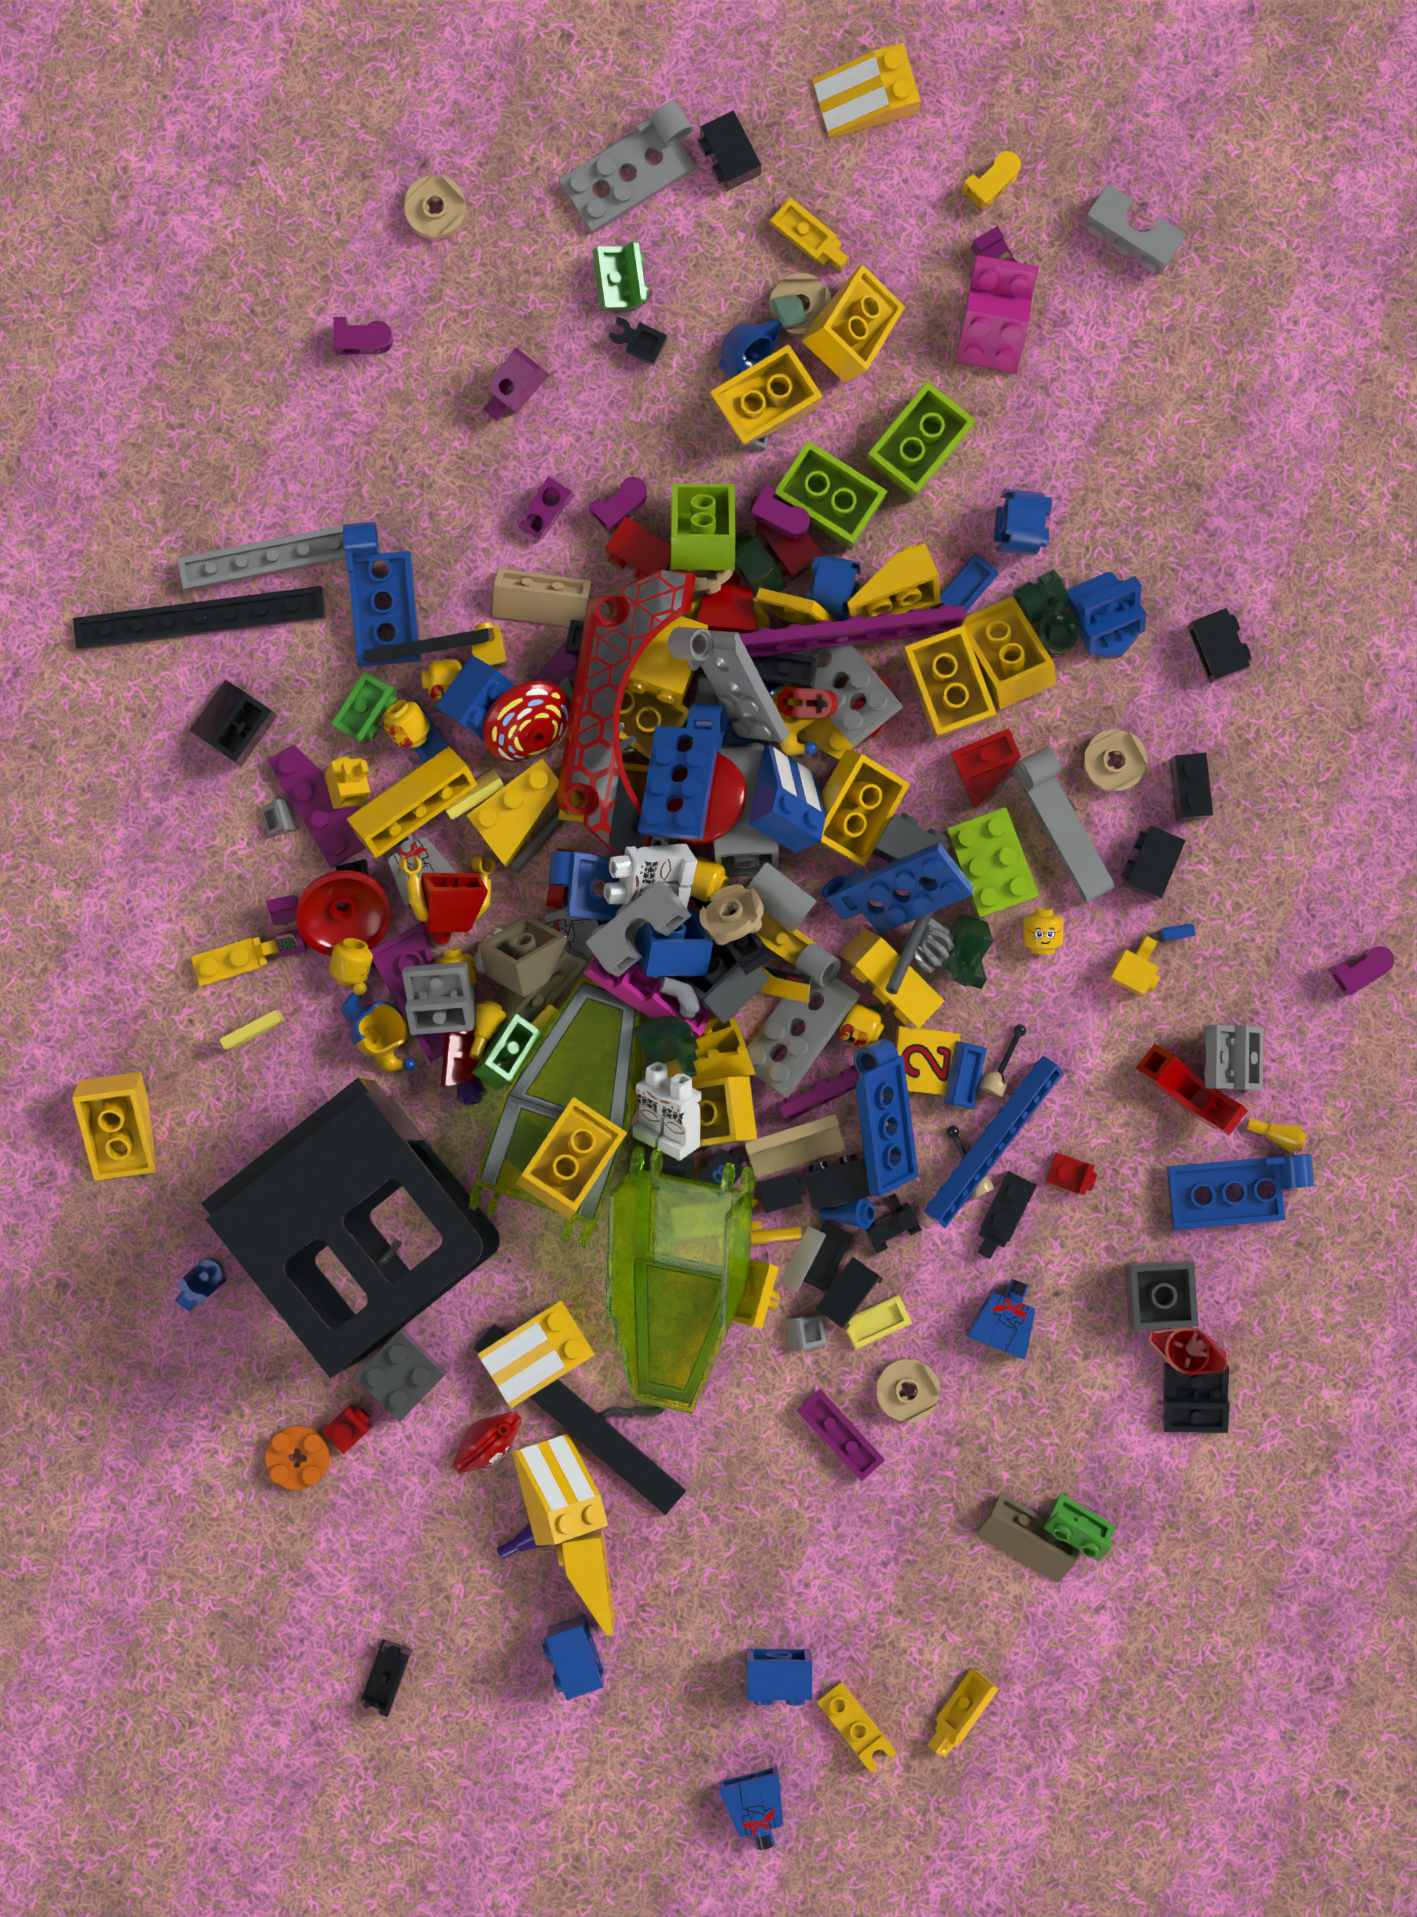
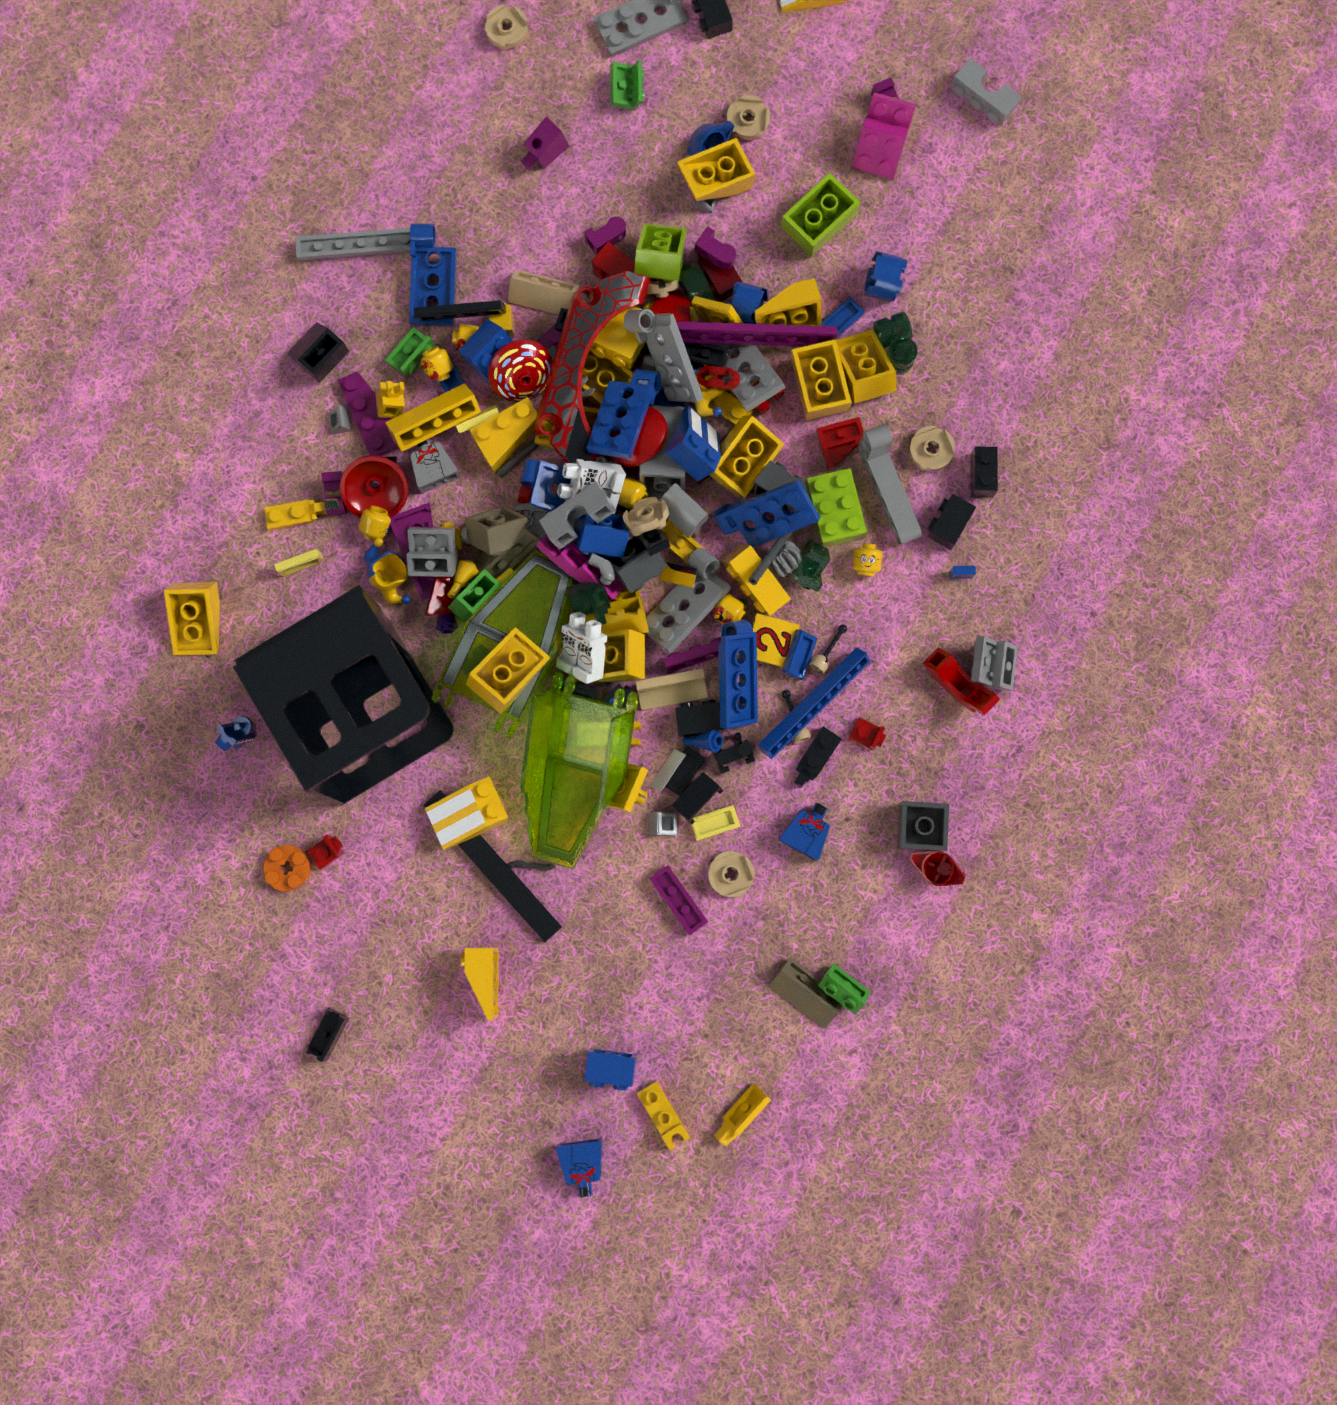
camera: 15 degrees right, 5 degrees down
(199, 618) = (305, 280): black tile -> none
(361, 339) = (442, 106): magenta leg -> none
(400, 1374) = (368, 817): dark grey brick -> none
(448, 900) = (449, 487): red torso -> none
(487, 1442) = (424, 874): red hat -> none
(522, 1541) = (447, 945): dark purple cone -> none
(545, 508) = (554, 232): magenta leg -> none
(558, 1491) = (468, 913): yellow slope -> none
(574, 1657) = (463, 1036): blue brick -> none
(642, 343) = (635, 130): black plate -> none
(775, 1235) = (648, 752): yellow piece -> none
(781, 1191) = (657, 718): black piece -> none
(789, 310) = (740, 117): sand green slope -> none
(809, 234) = (760, 72): yellow hinge -> none
(832, 493) = (757, 244): lime brick -> none
(854, 325) = (783, 132): yellow slope -> none
(994, 181) = (891, 51): yellow leg -> none
(1108, 613) = (939, 347): blue piece -> none
(1134, 970) = (930, 595): yellow brick -> none
(1195, 1401) = (940, 907): black slope -> none
(1219, 645) = (1014, 377): black piece -> none
(1280, 1171) = (1018, 749): blue hinge -> none
(1284, 1135) = (1025, 725): yellow cone -> none
(1371, 966) = (1099, 613): magenta leg -> none

